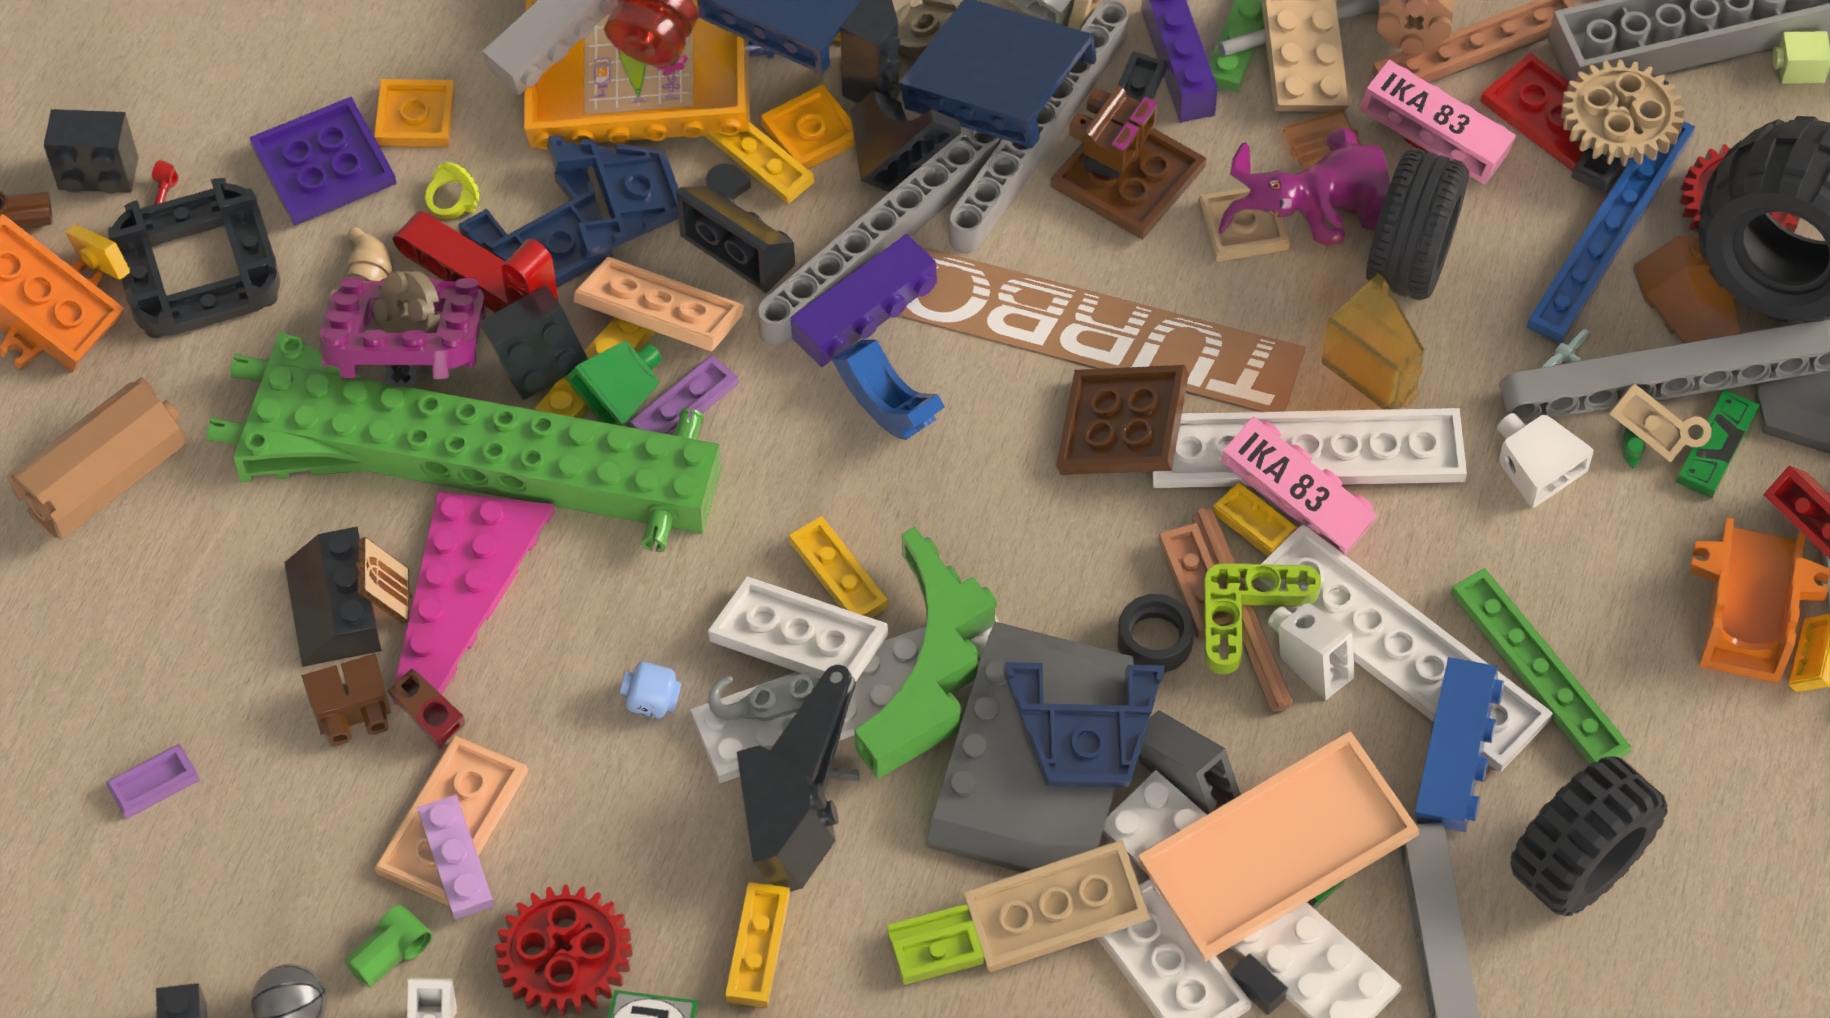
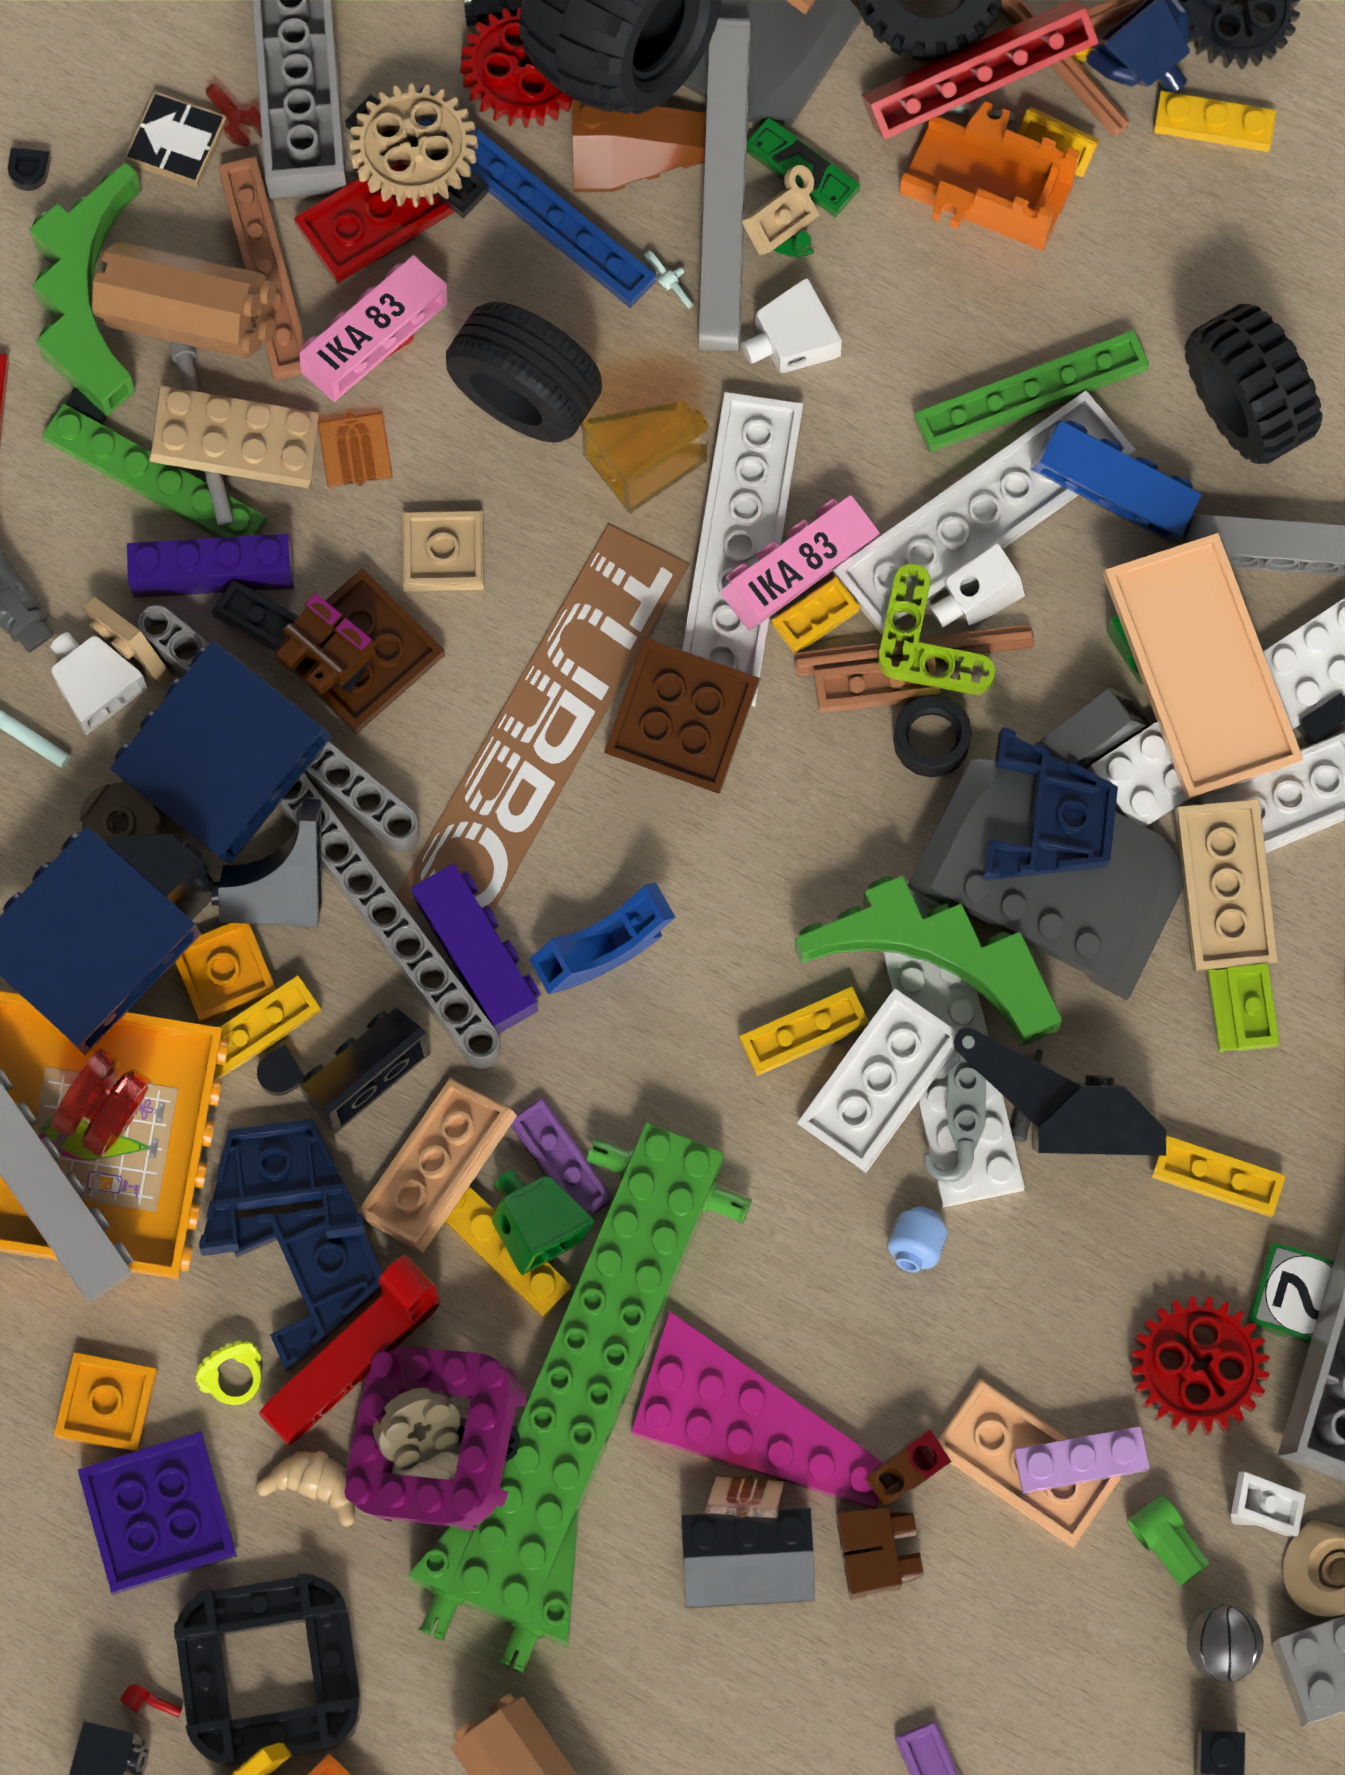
camera: 80 degrees left, 15 degrees up
(534, 342) = (481, 1297): black brick -> none
(1344, 179) = (430, 433): magenta animal -> none

